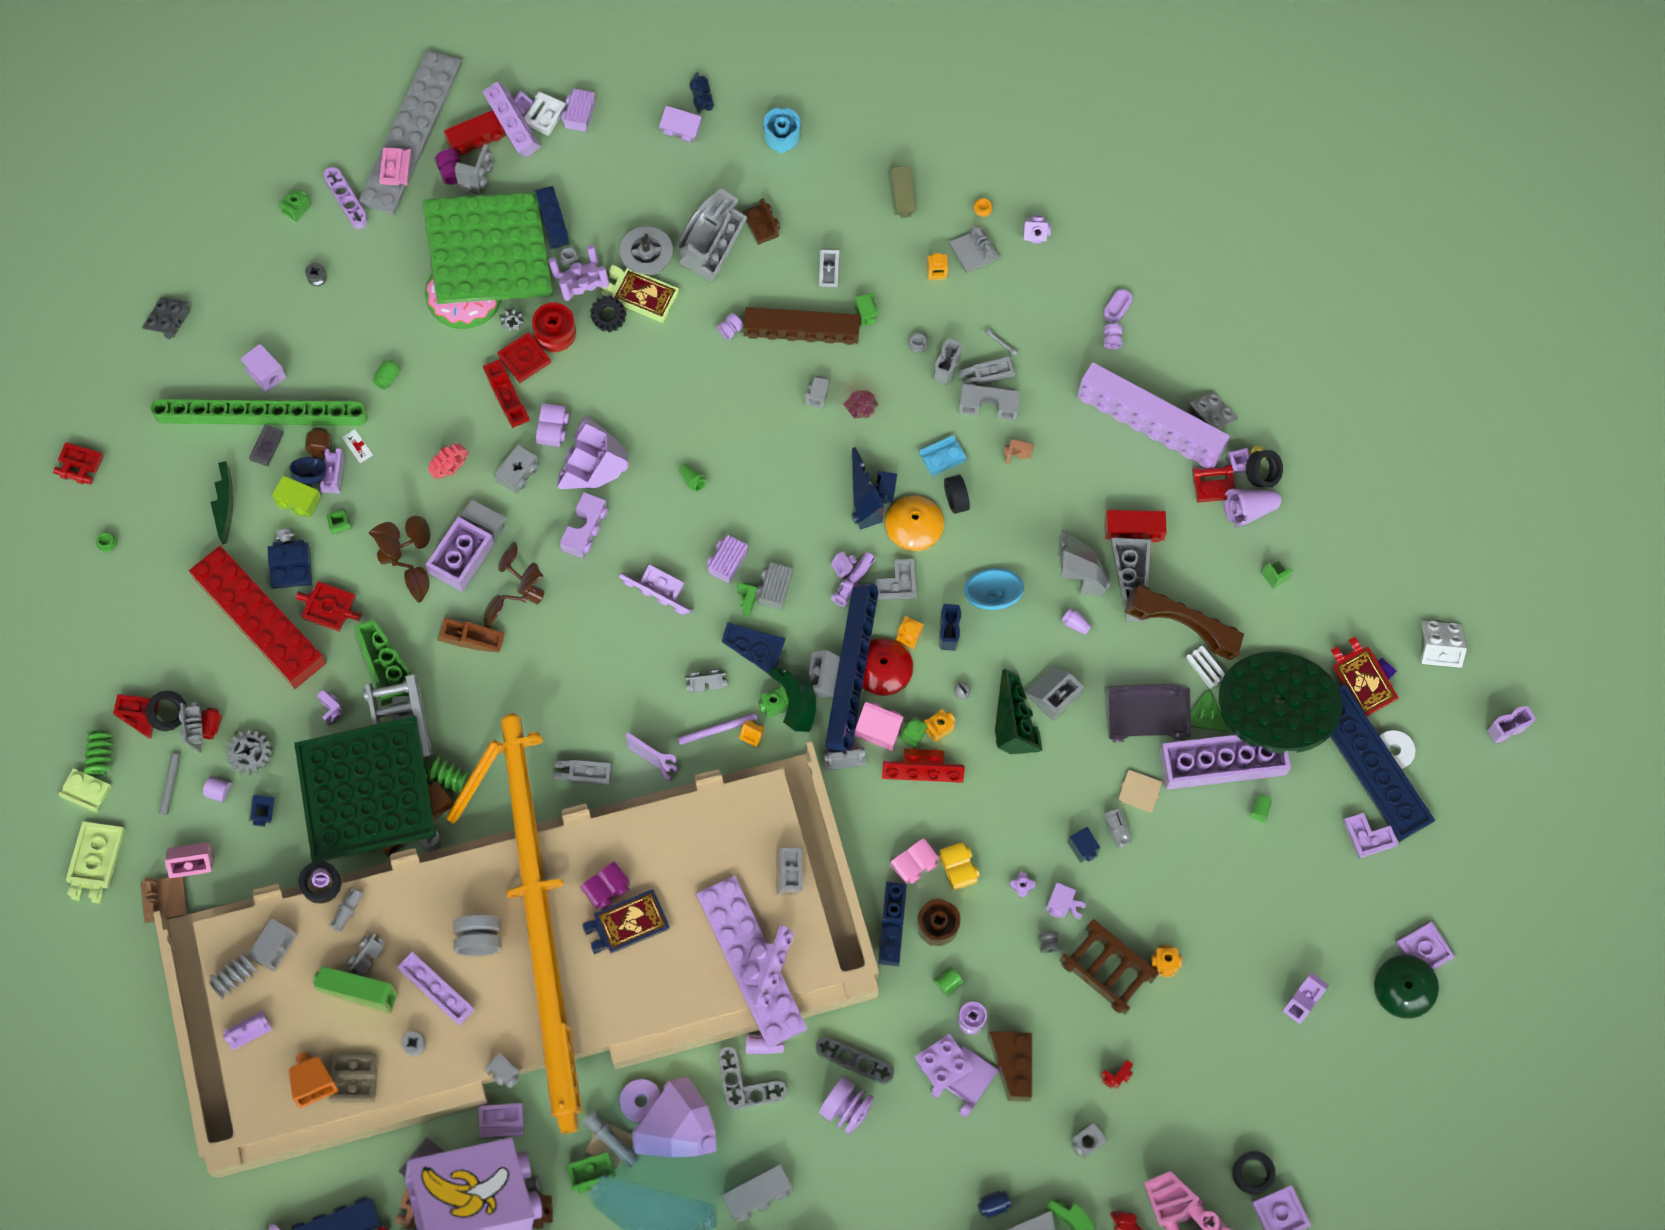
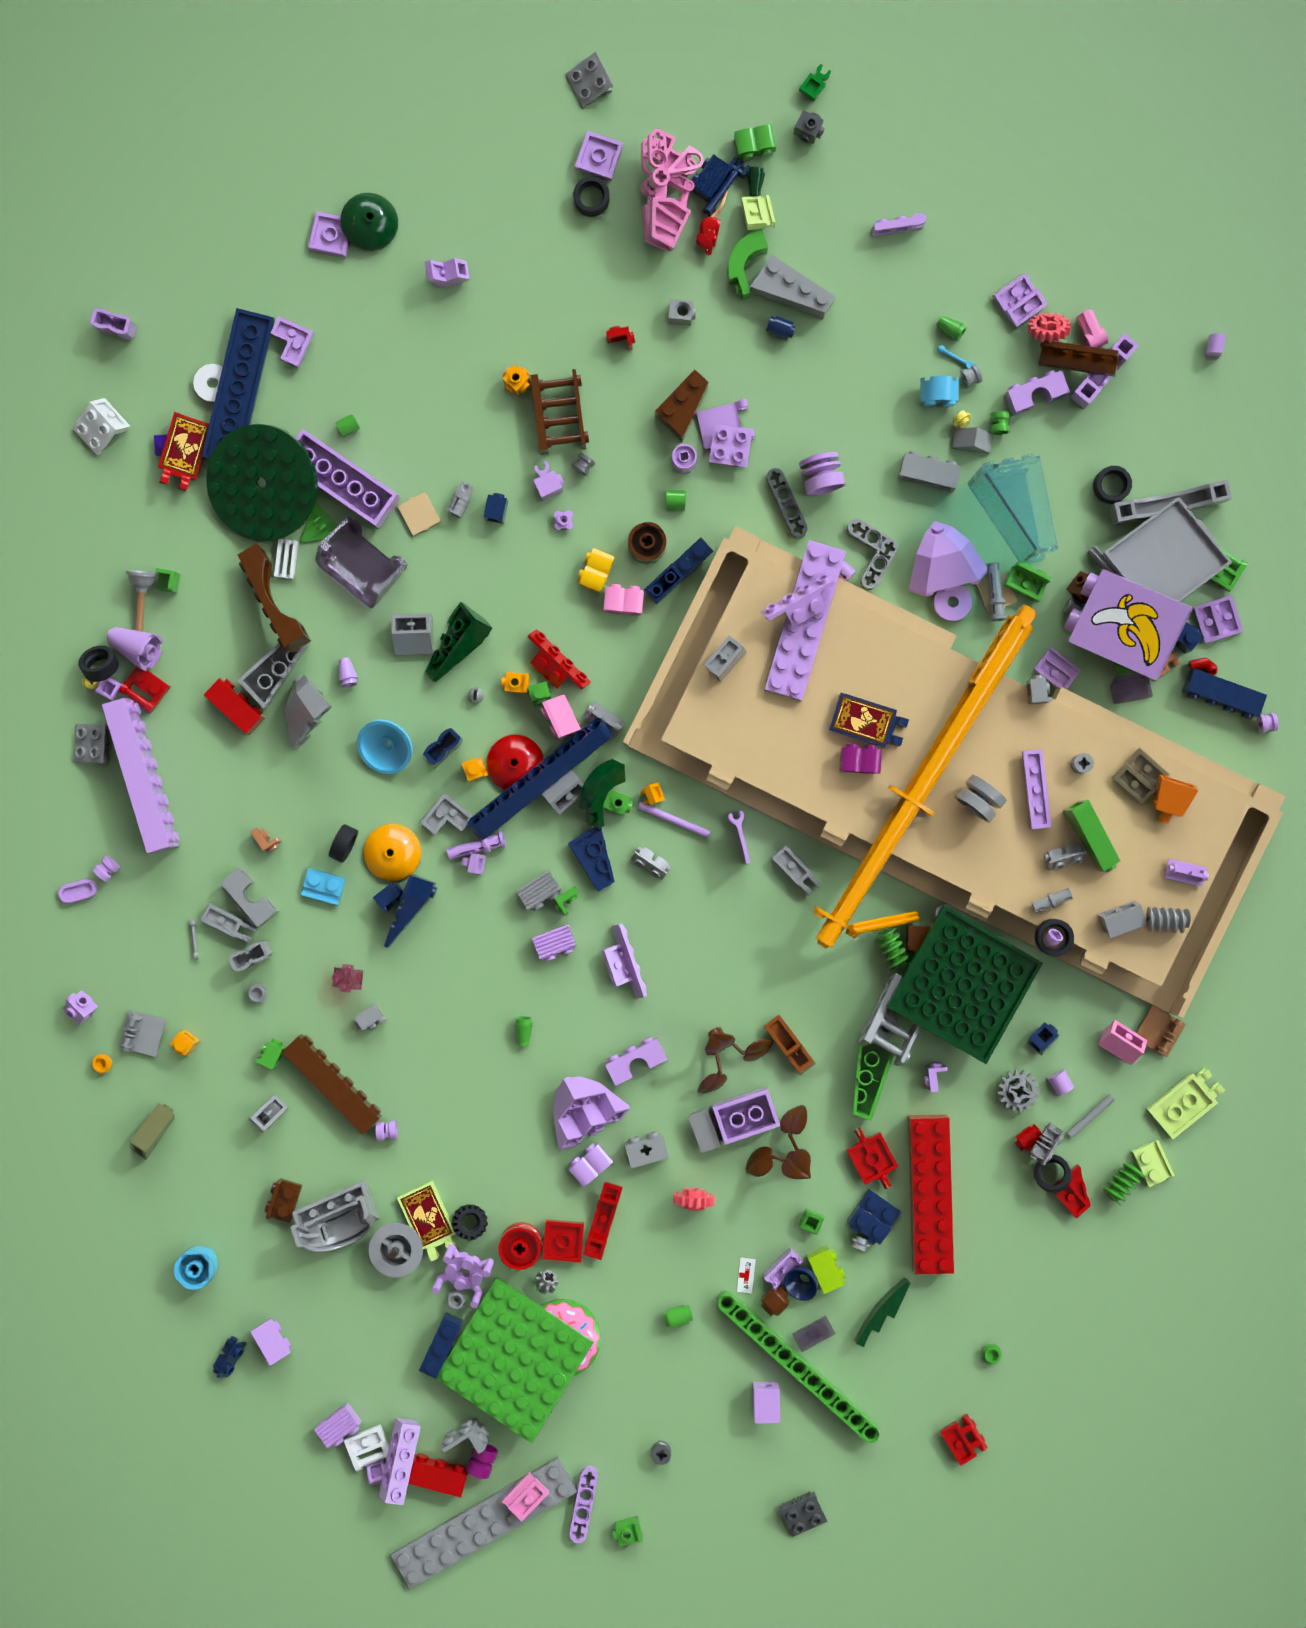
camera: 130 degrees left, 20 degrees up
(1295, 556) = (141, 581): none -> light grey piece

